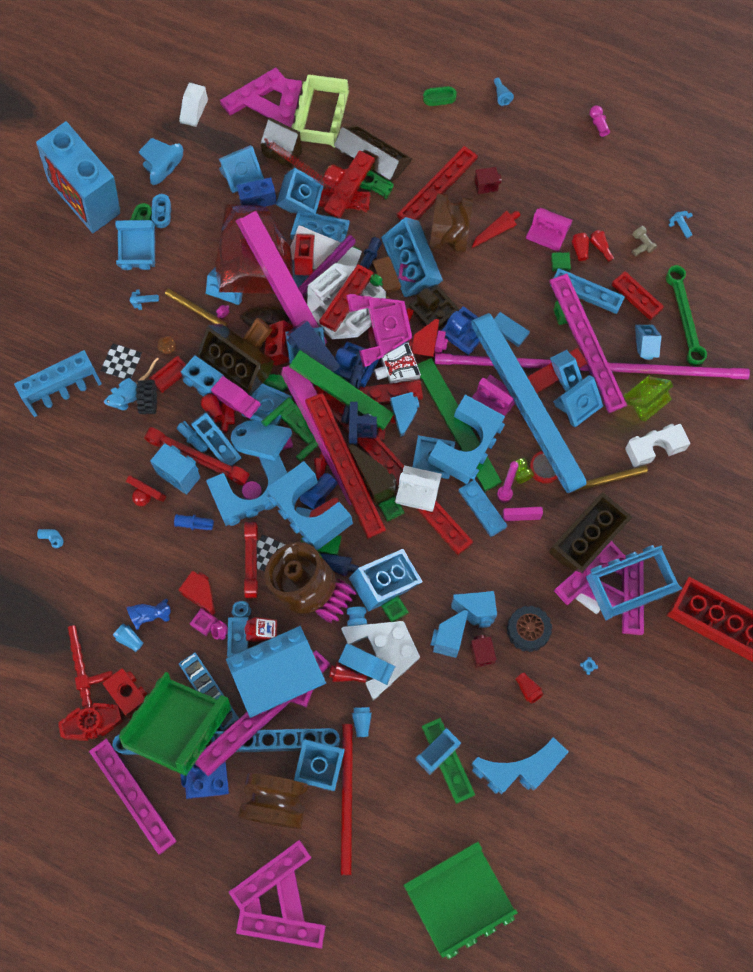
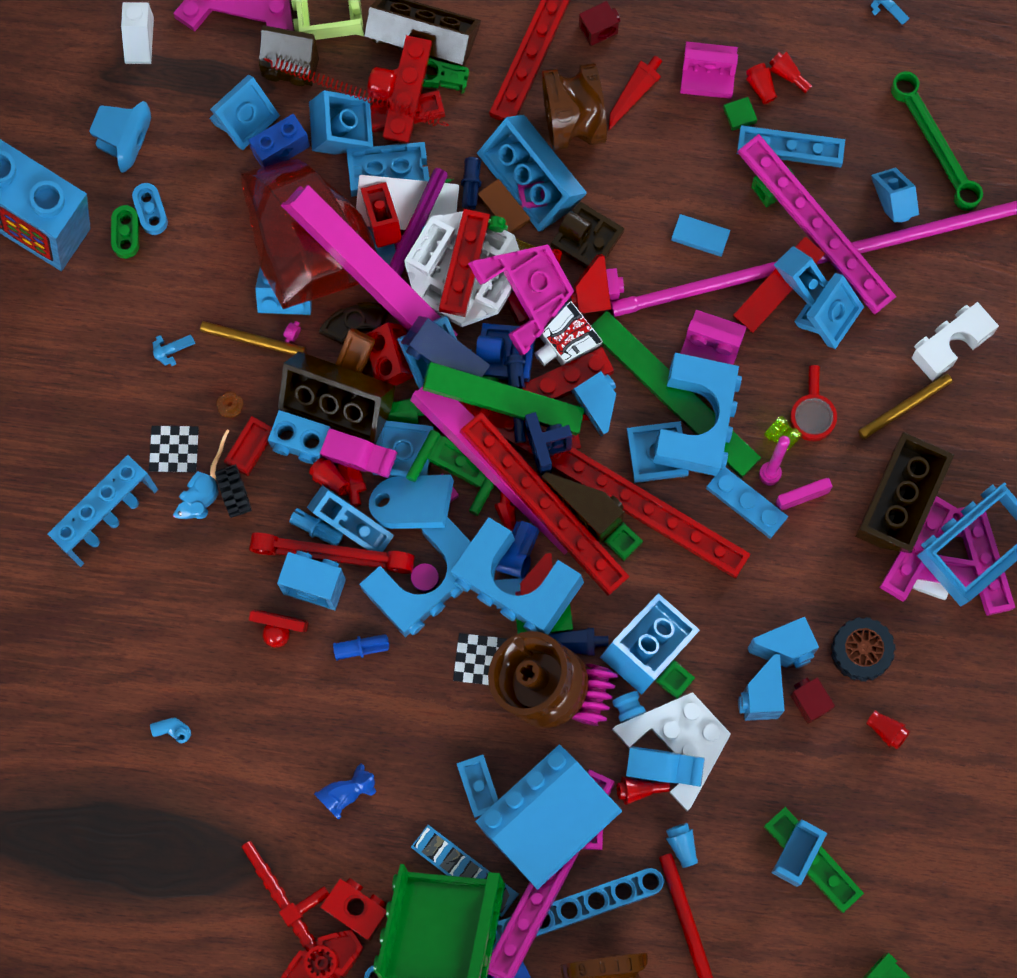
camera: 15 degrees left, 5 degrees up
(128, 637) = (330, 834): dark azure cone -> none
(136, 244) = (134, 272): dark azure panel -> none
(199, 591) = (403, 740): red slope -> none
(203, 622) = (423, 779): dark pink tile -> none
(219, 630) = (449, 784): dark pink plate -> none
(241, 605) = (463, 742): dark azure plate -> none
(251, 539) = (458, 674): red piece -> none
(260, 629) = (507, 766): red brick -> none
(319, 764) = (649, 922): dark azure slope -> none
(418, 488) = (653, 503): white bracket -> none
(460, 330) = (642, 255): blue plate -> none
(528, 403) = (762, 335): dark azure beam -> none
(530, 770) = (926, 838): dark azure arch -> none
(589, 665) = (956, 673): dark azure piece -> none
(637, 295) = (862, 132): red plate -> none
(647, 245) = (852, 51): dark tan piece -> none
(649, 396) = (922, 274): clear neon green bracket -> none

